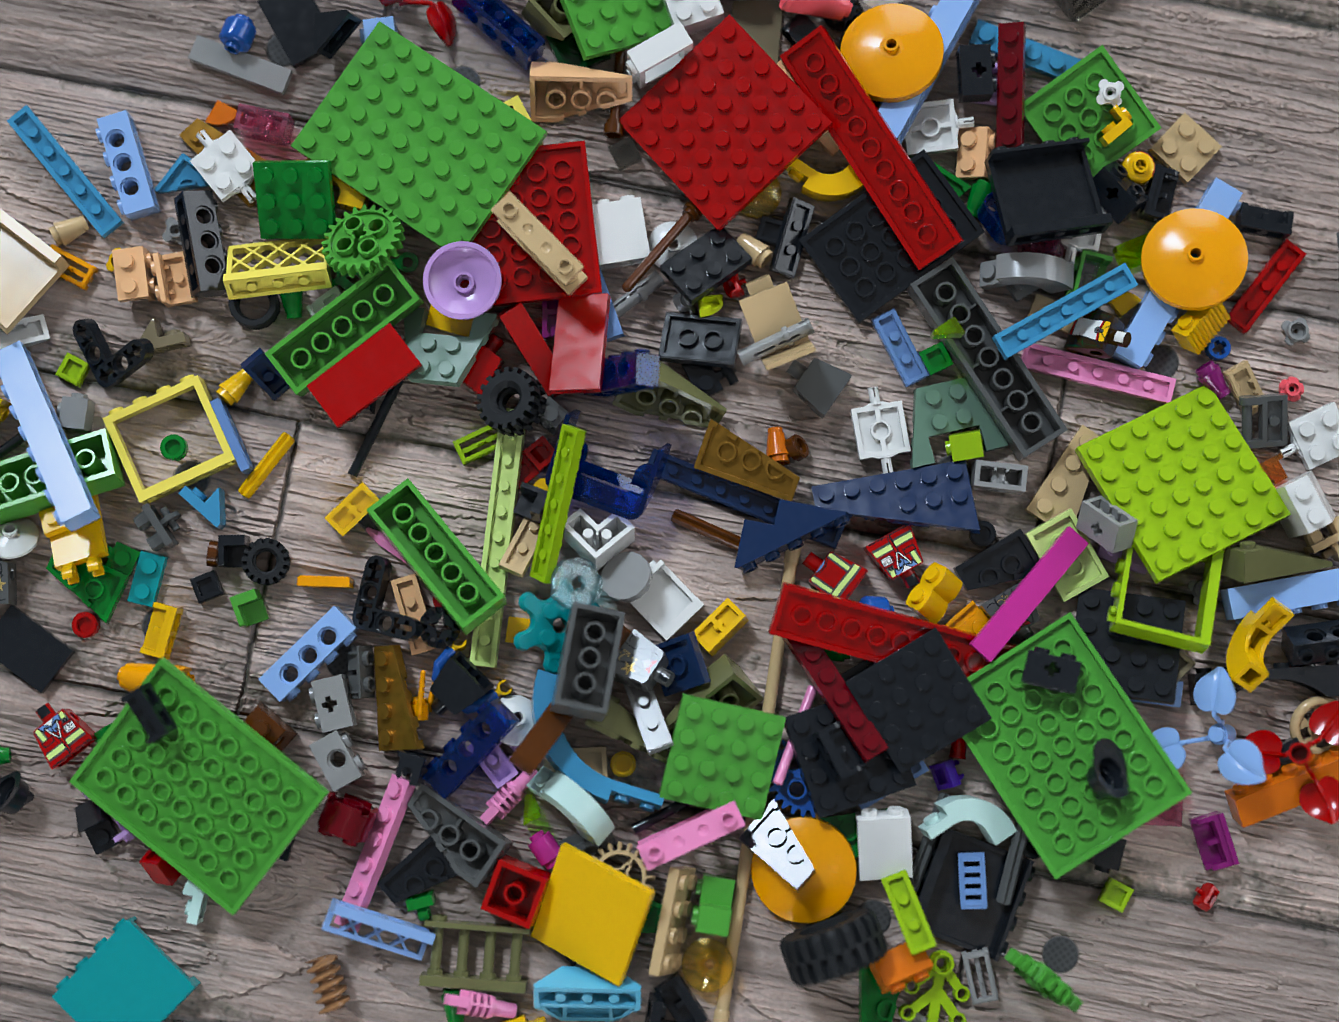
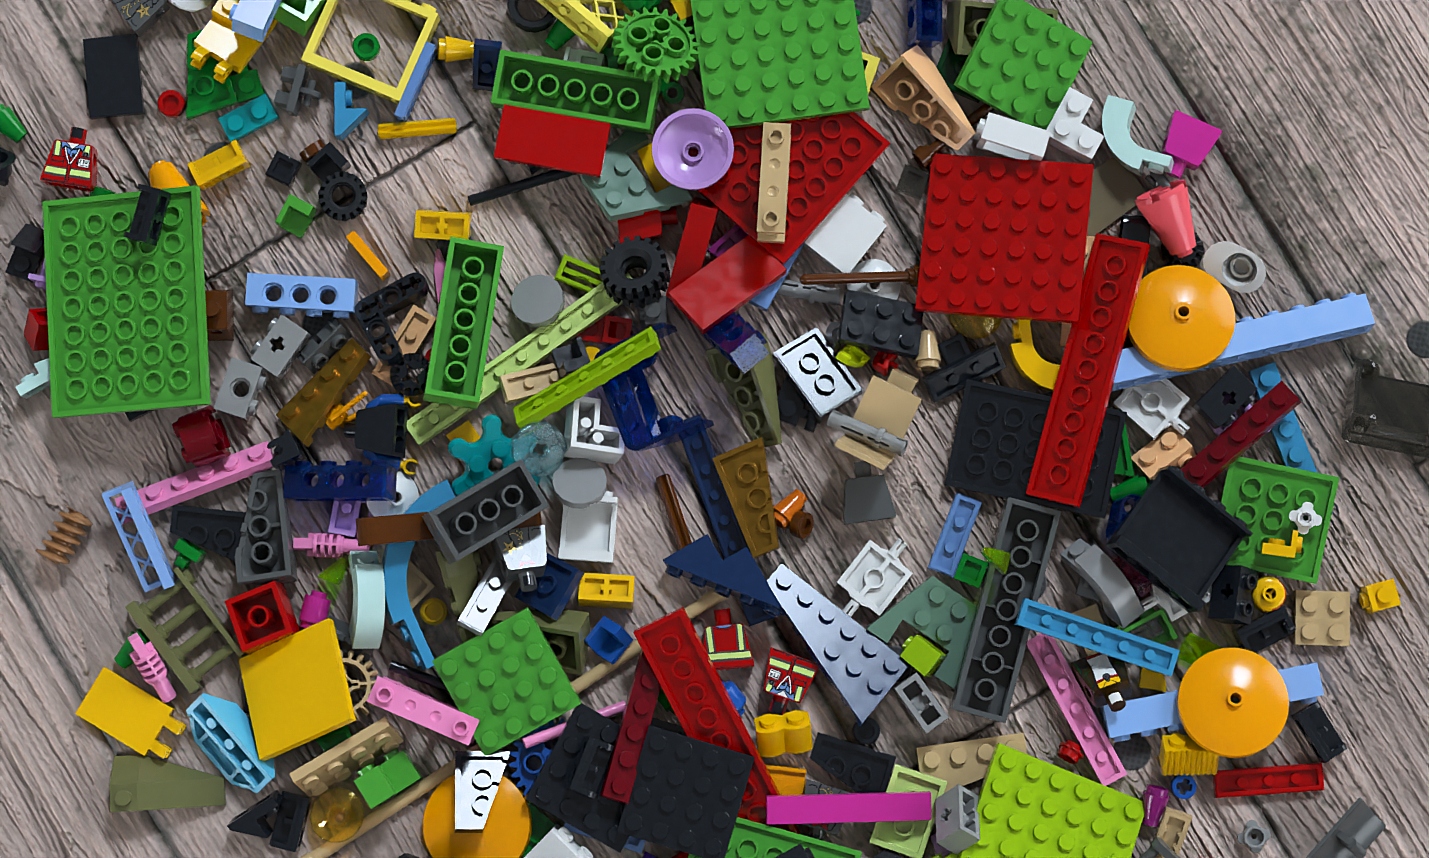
camera: 45 degrees right, 0 degrees up
(468, 490) = (537, 300): none -> light grey tile
(756, 657) = (608, 640): none -> blue panel
(1124, 404) = (1070, 752): none -> red plate
(1205, 95) = (1379, 596): none -> yellow bracket

